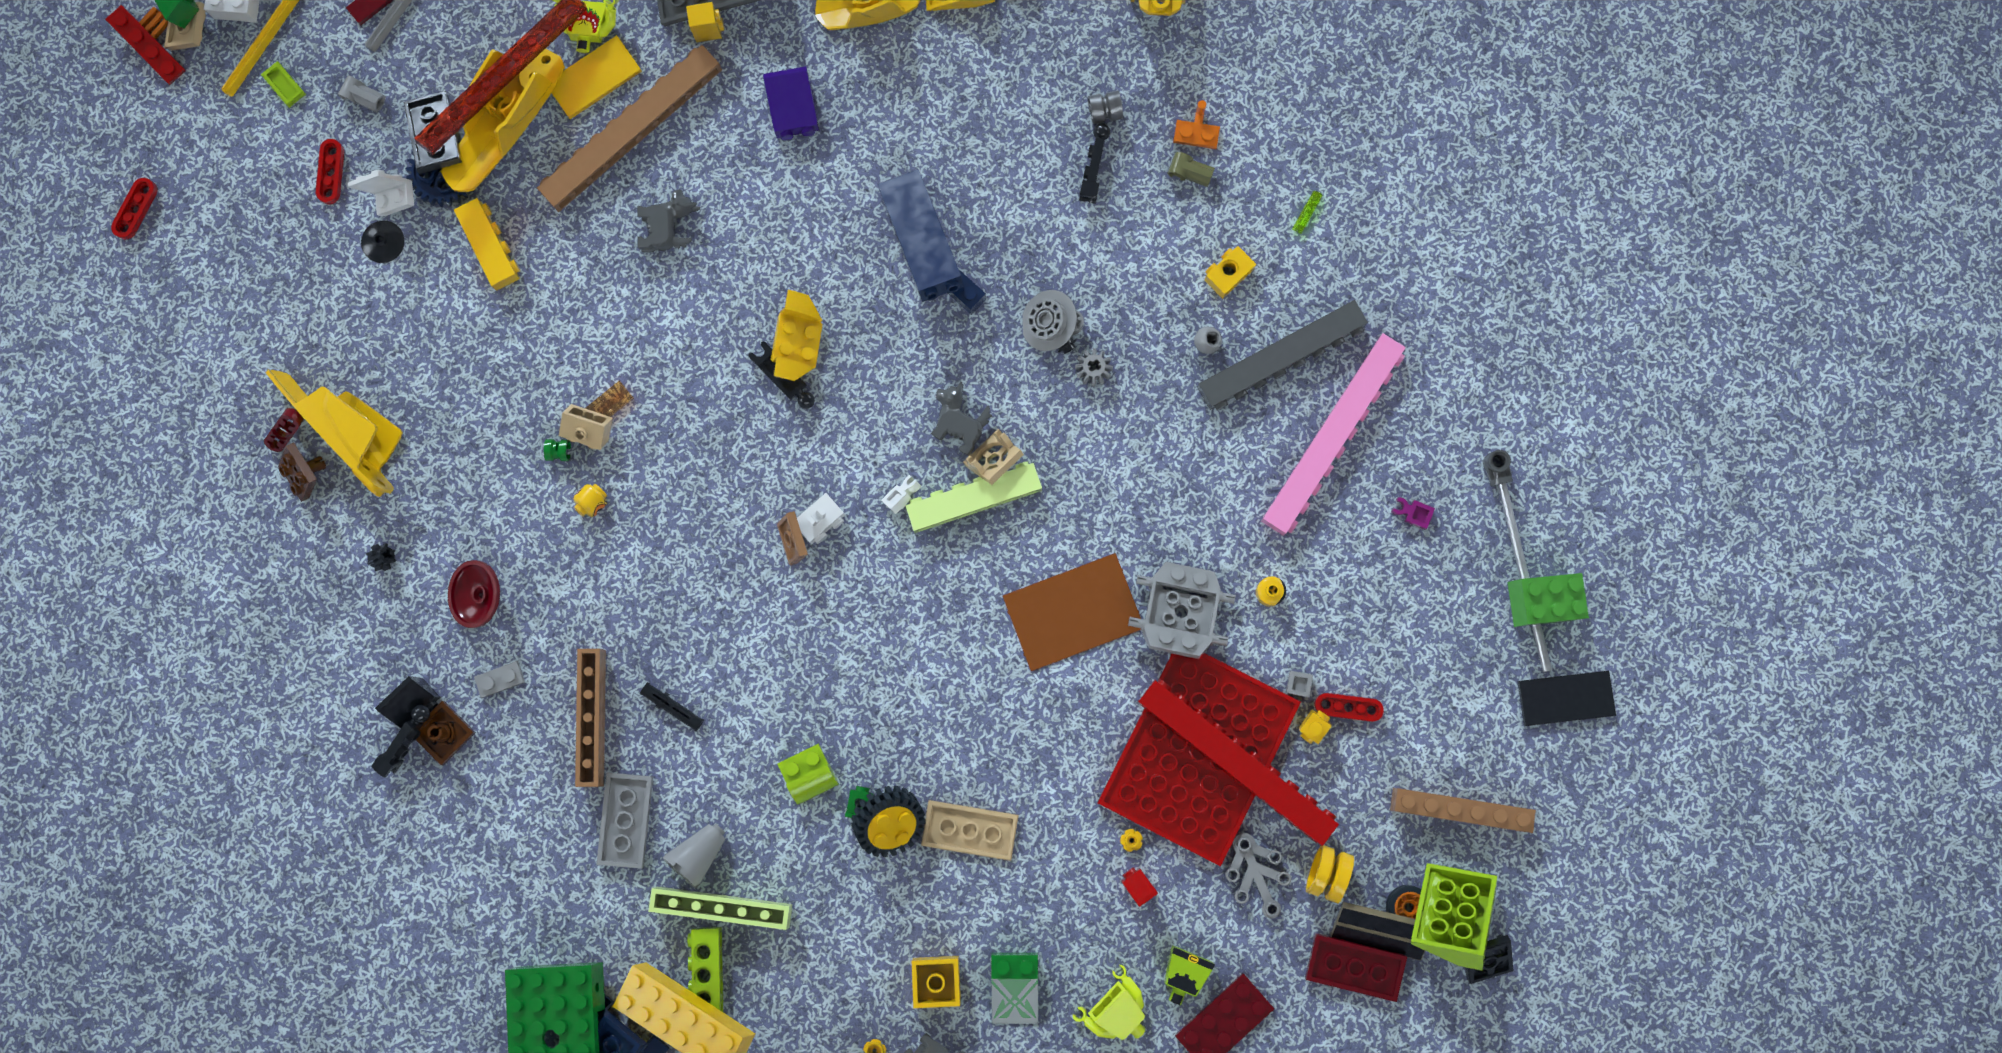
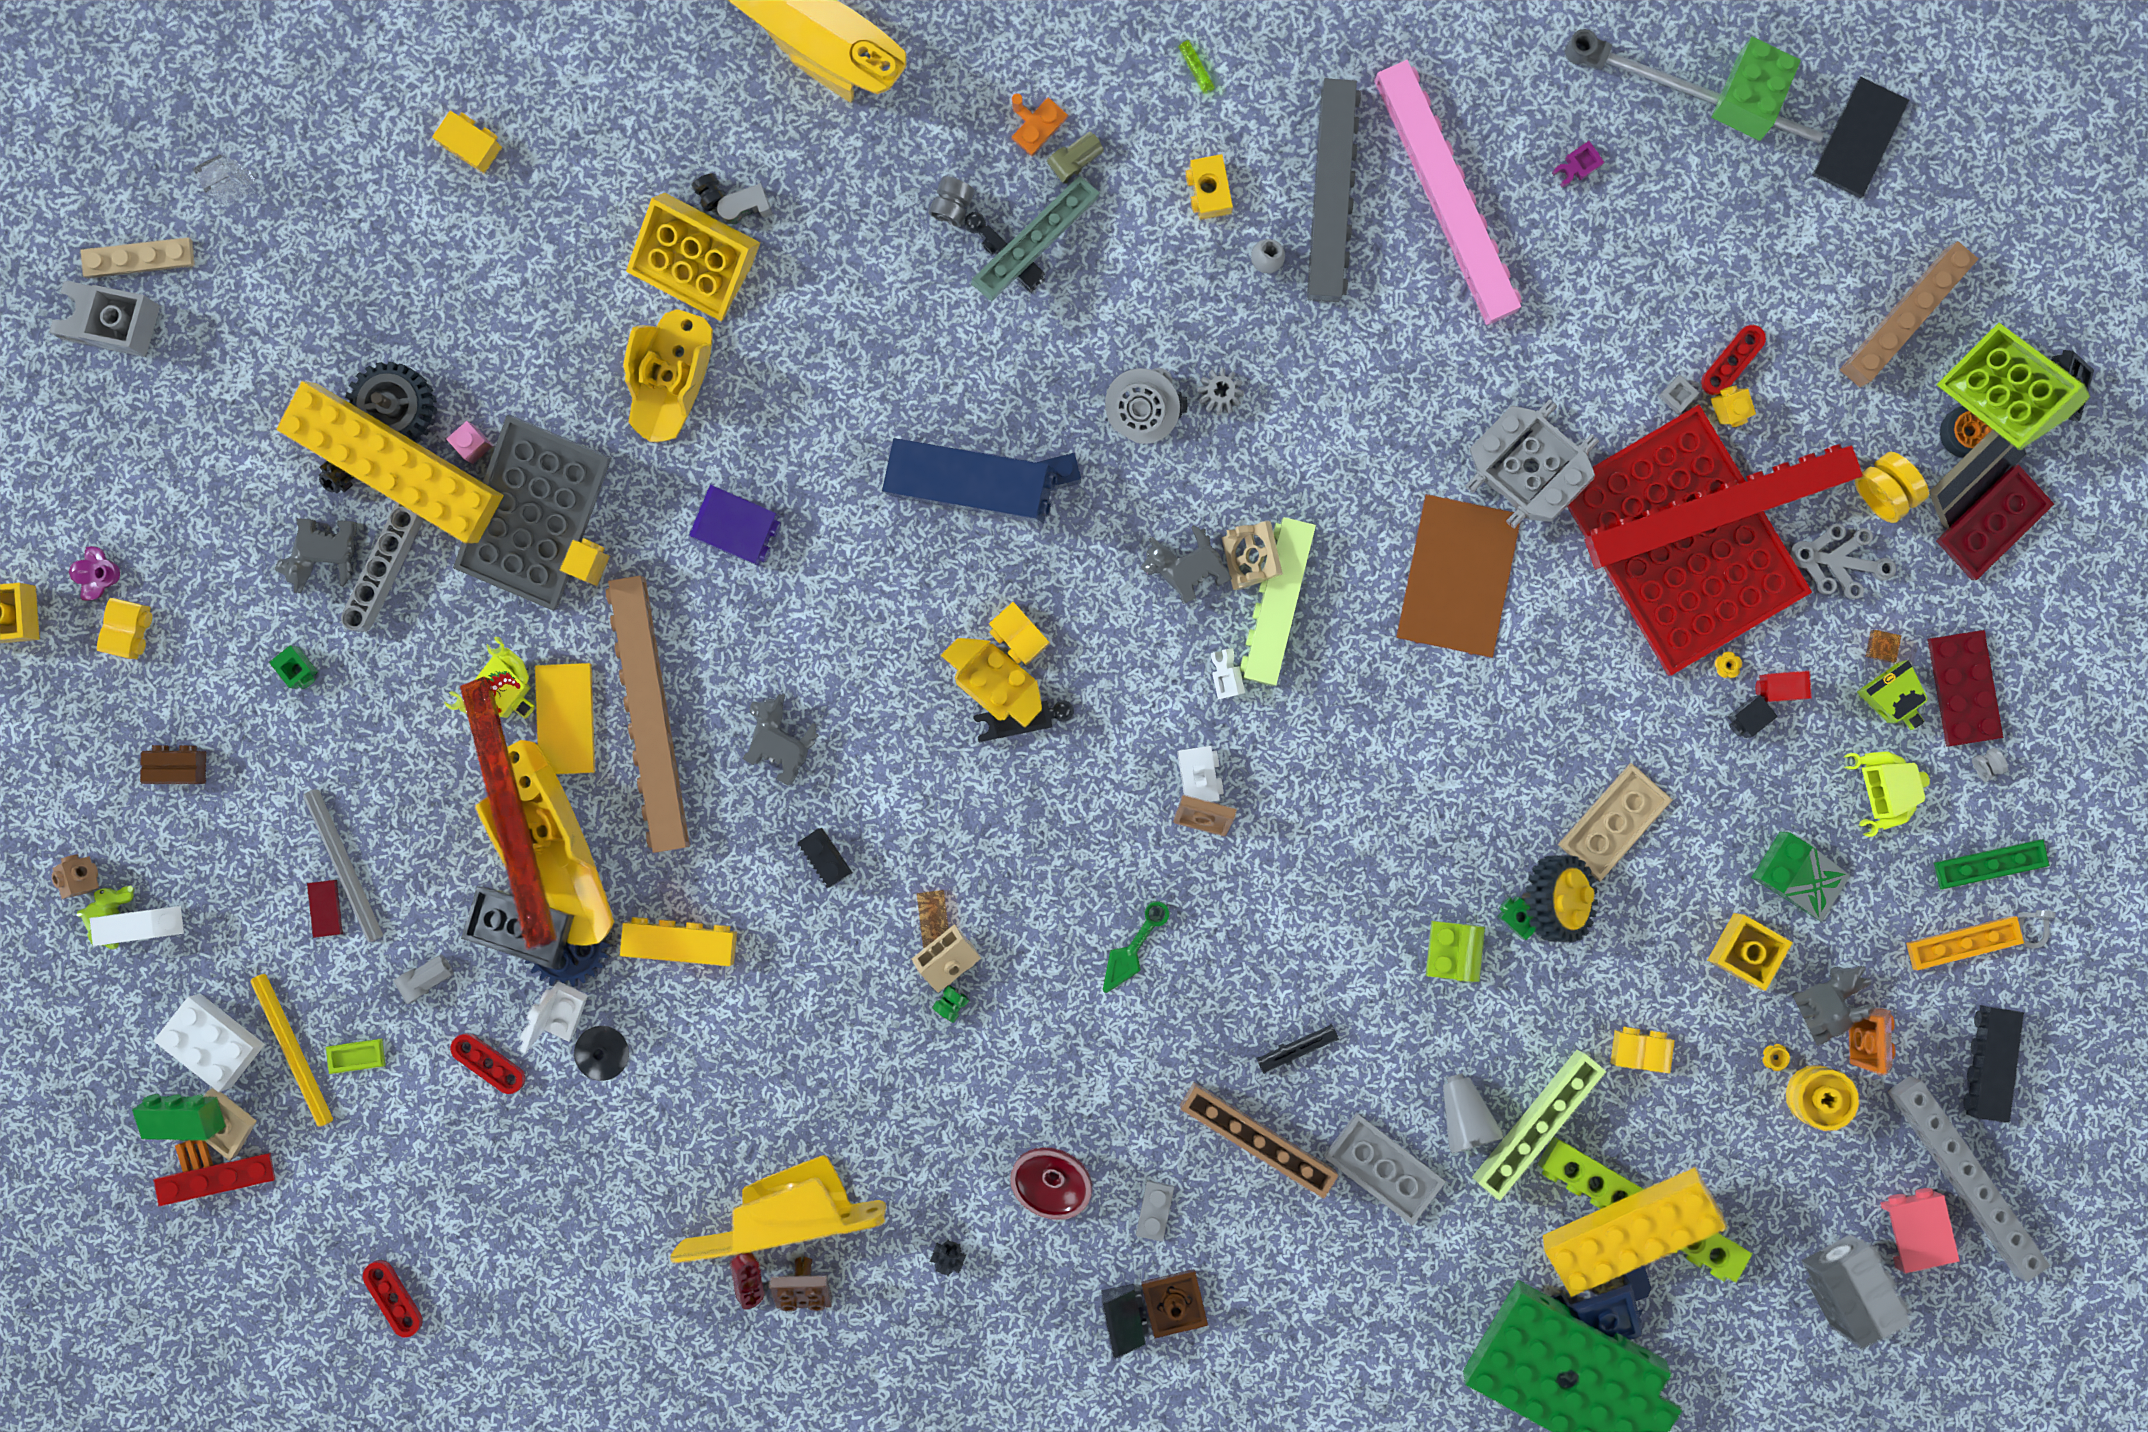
camera: 60 degrees left, 5 degrees up
(398, 749) = (1168, 1371): black plate -> none
(590, 500) = (1026, 1001): yellow head -> none
(604, 303) = (824, 857): none -> black brick
(660, 550) = (1124, 961): none -> green piece
(819, 950) = (1642, 1051): none -> yellow brick
(839, 337) = (1019, 634): none -> yellow brick
(1104, 879) = (1751, 717): none -> black brick
(1115, 176) = (1035, 238): none -> sand green plate
(1215, 942) = (1883, 646): none -> clear orange plate
(1262, 591) = (1564, 368): yellow head -> none

